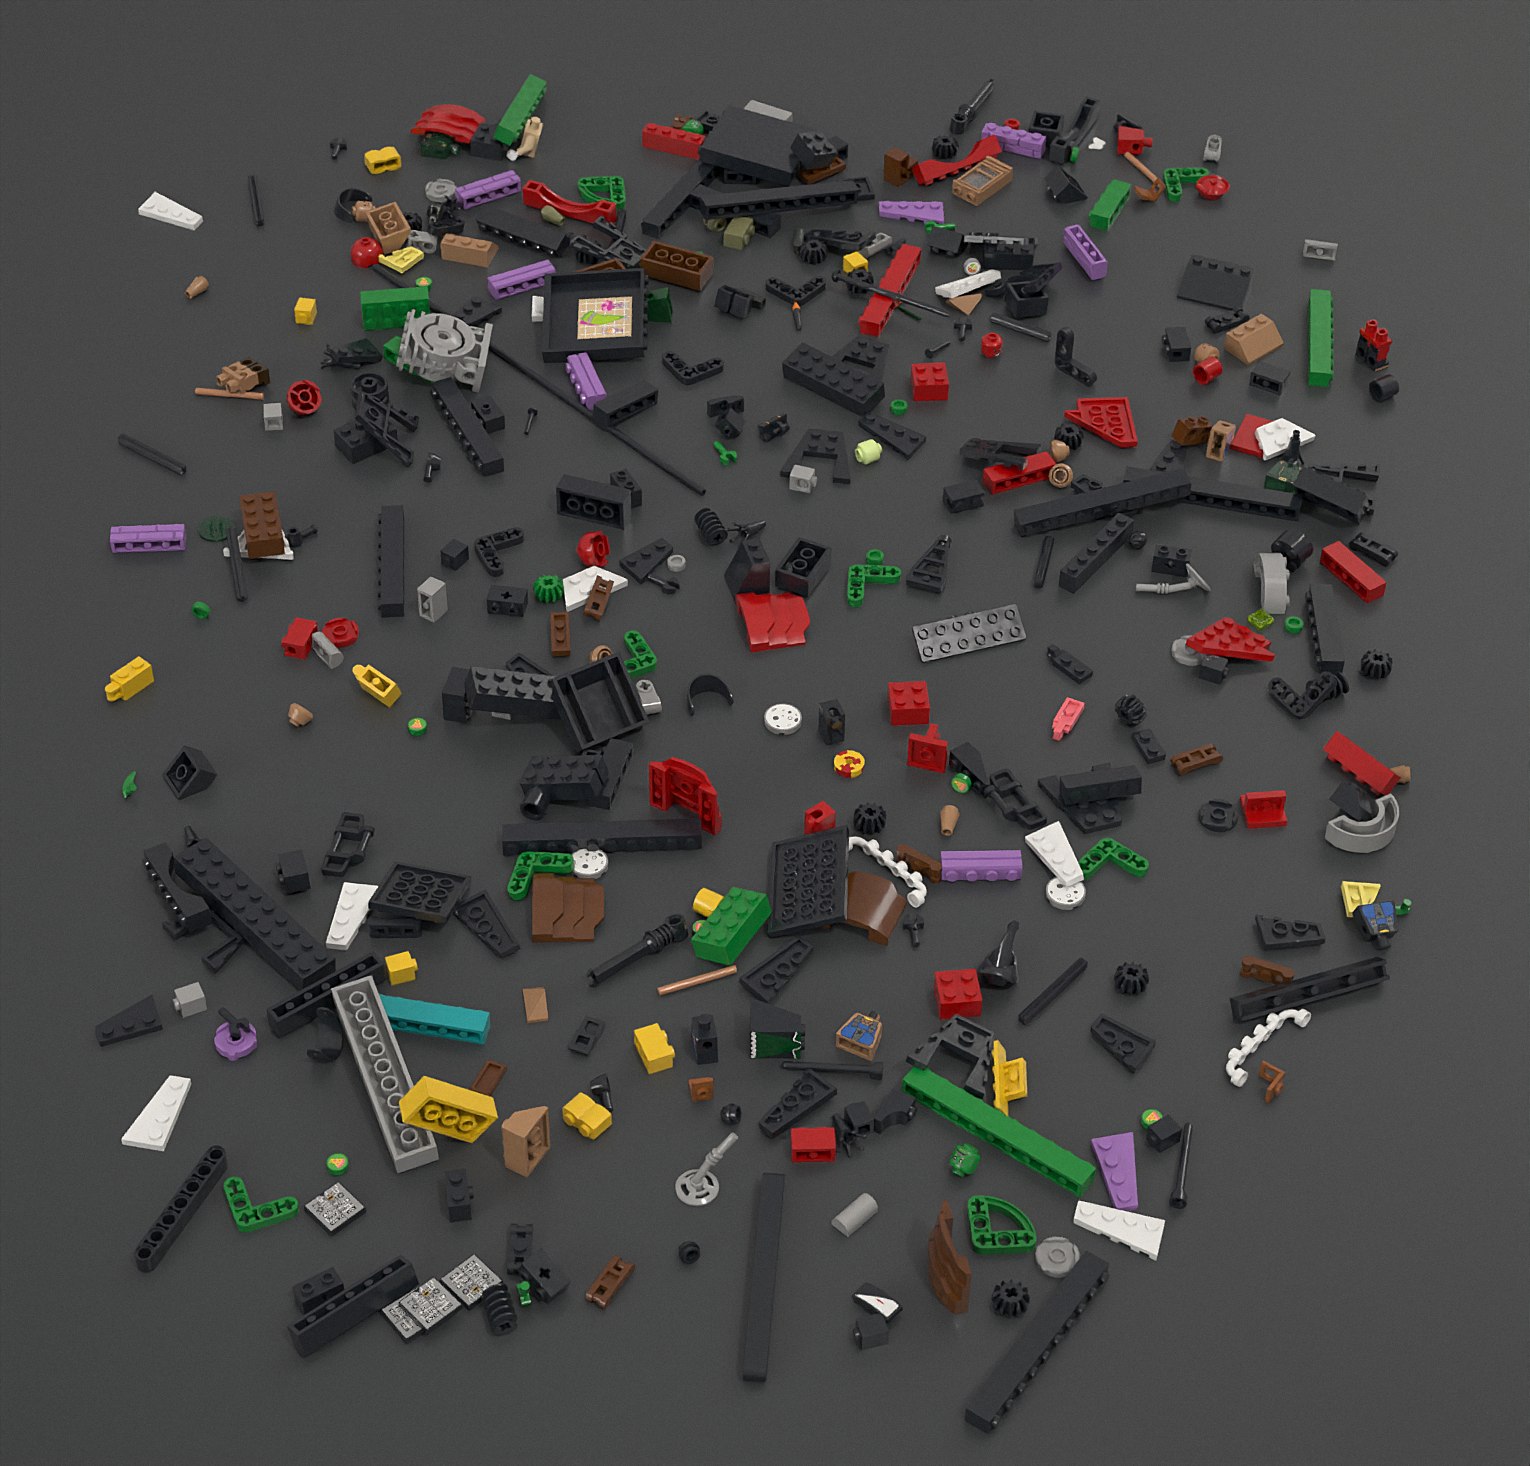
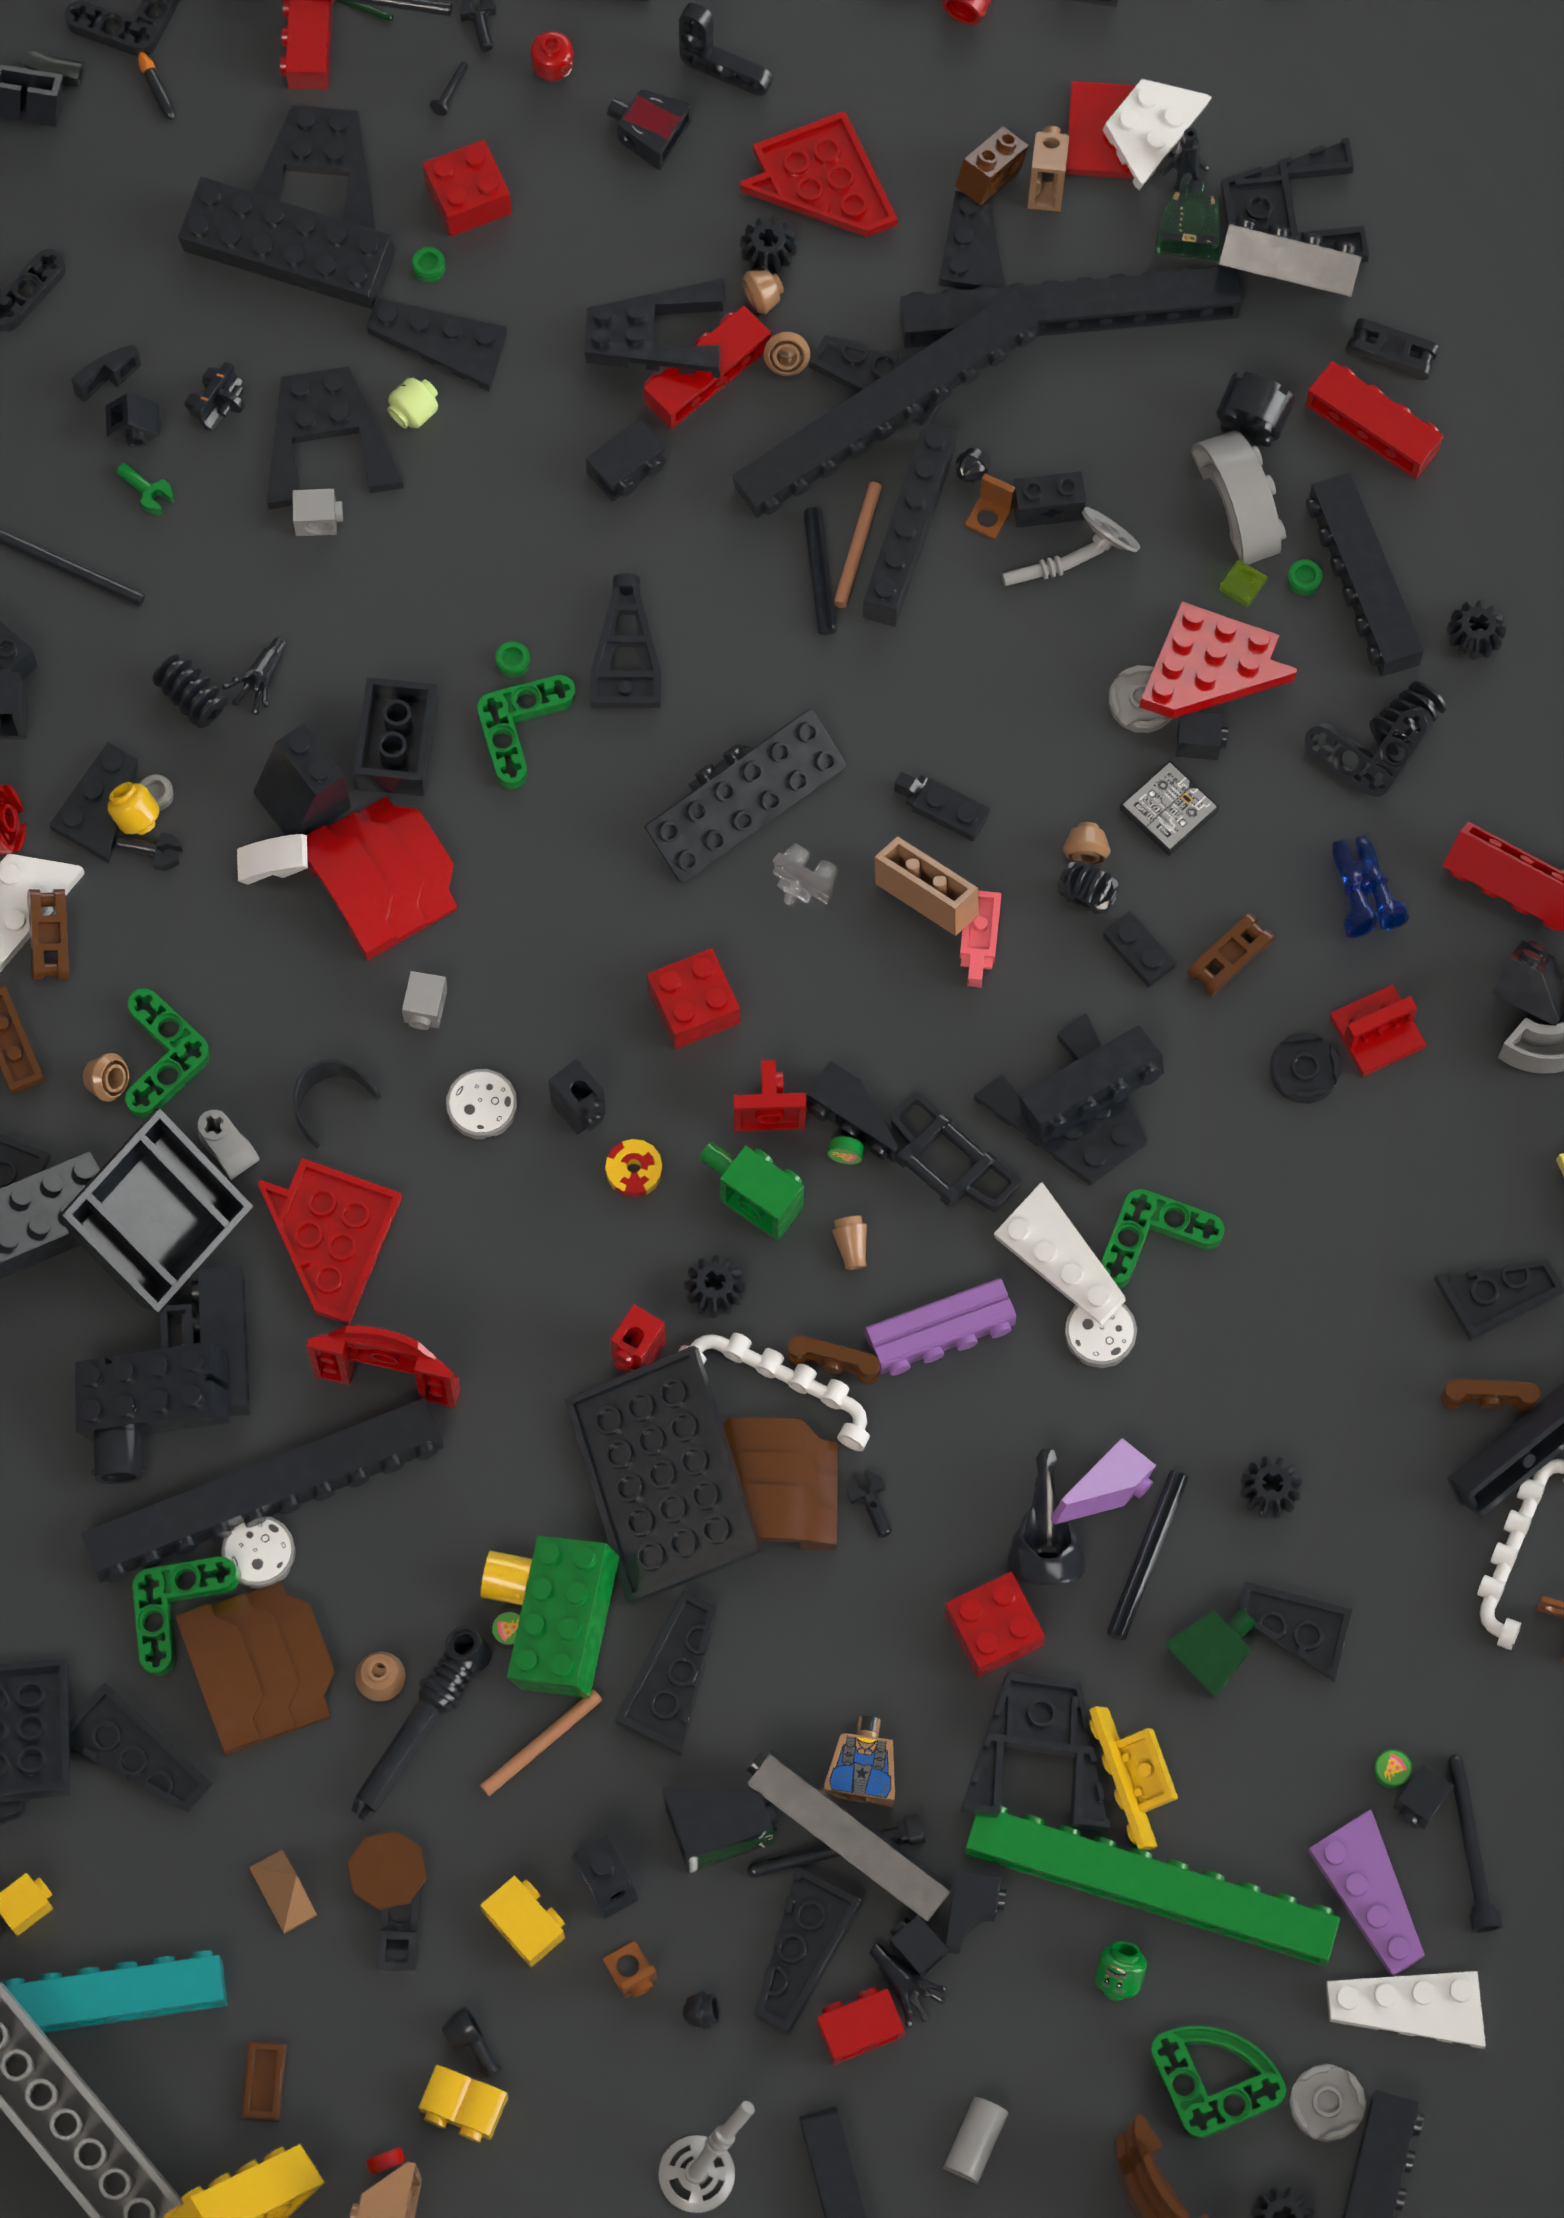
camera: 20 degrees left, 25 degrees up
(592, 1006) = (387, 1870): none -> reddish brown piece
(626, 928) = (389, 1678): none -> medium nougat cone
(662, 562) = (133, 808): none -> yellow head
(687, 740) = (332, 1233): none -> red wing
(722, 596) = (272, 856): none -> white slope
(772, 670) = (424, 1000): none -> light grey brick
(841, 1054) = (848, 1834): none -> brick
(908, 782) = (757, 1188): none -> green brick
(982, 672) = (800, 881): none -> clear hips
(1030, 381) = (651, 125): none -> torso
(1040, 948) = (1108, 1484): none -> slope
(1046, 686) = (926, 886): none -> medium nougat brick
(1061, 563) = (857, 544): none -> nougat bar
(1072, 1036) = (1213, 1648): none -> dark green torso
(1140, 692) = (1087, 844): none -> medium nougat cone
(1144, 556) = (994, 497): none -> dark orange bracket
(1186, 695) = (1169, 808): none -> tile
(1277, 747) = (1364, 879): none -> clear blue piece

